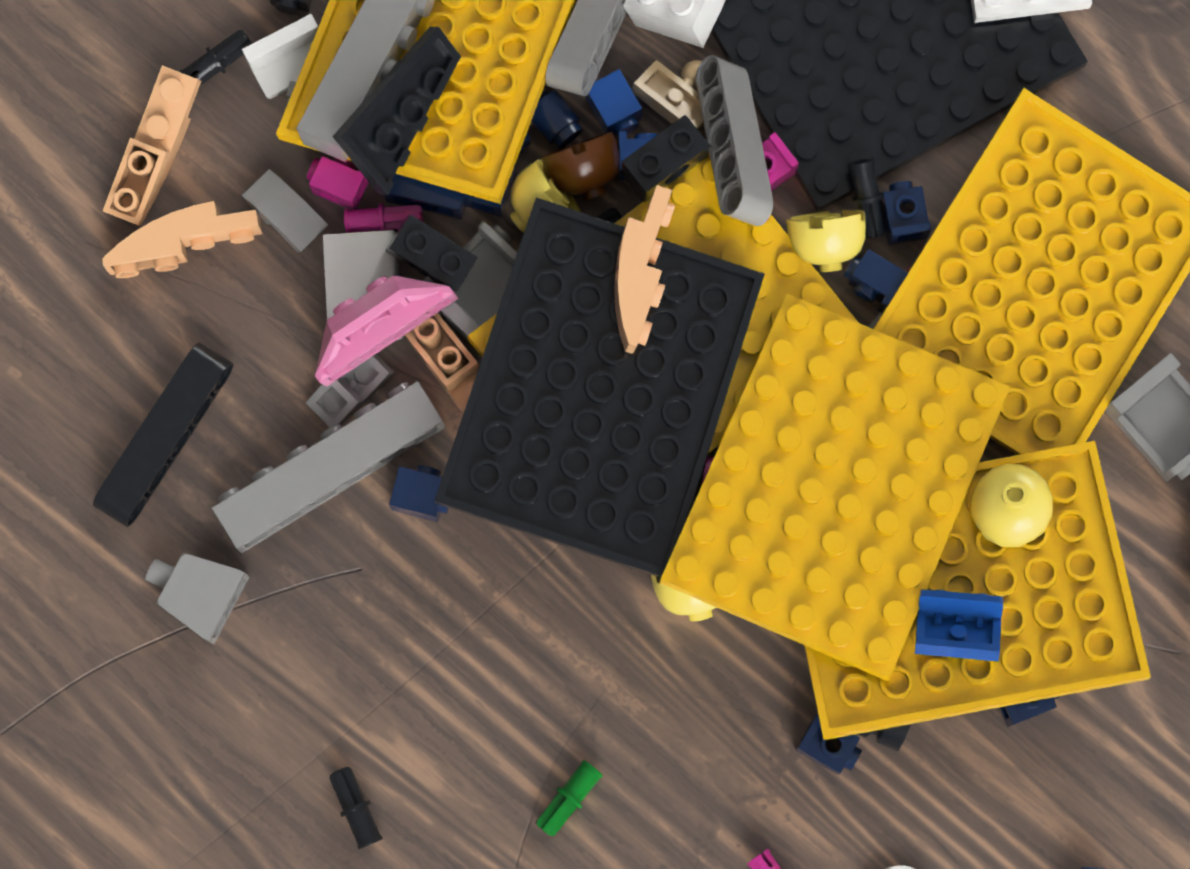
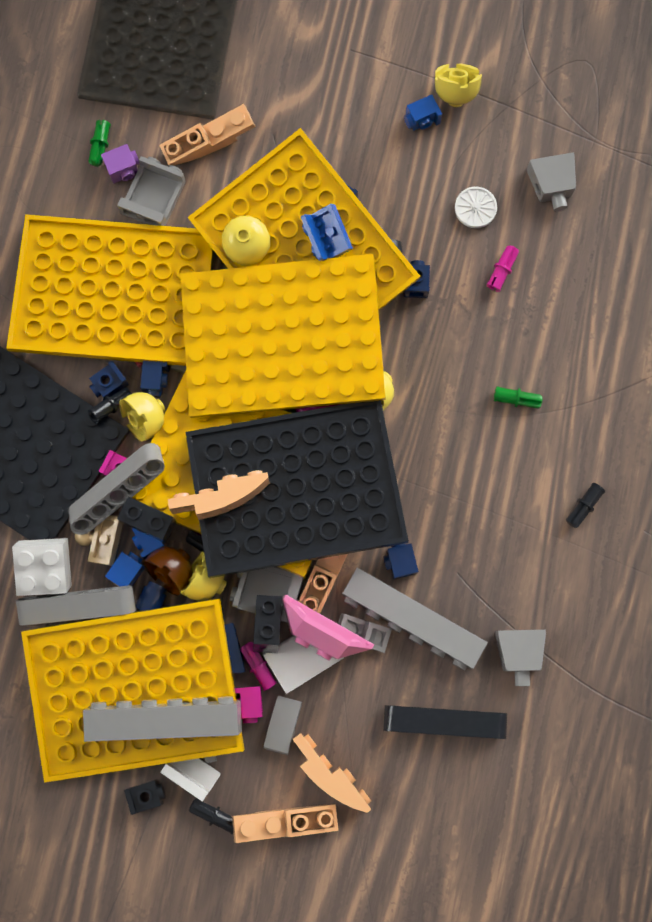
camera: 120 degrees left, 0 degrees up
(393, 113) = (207, 685): black wing -> none

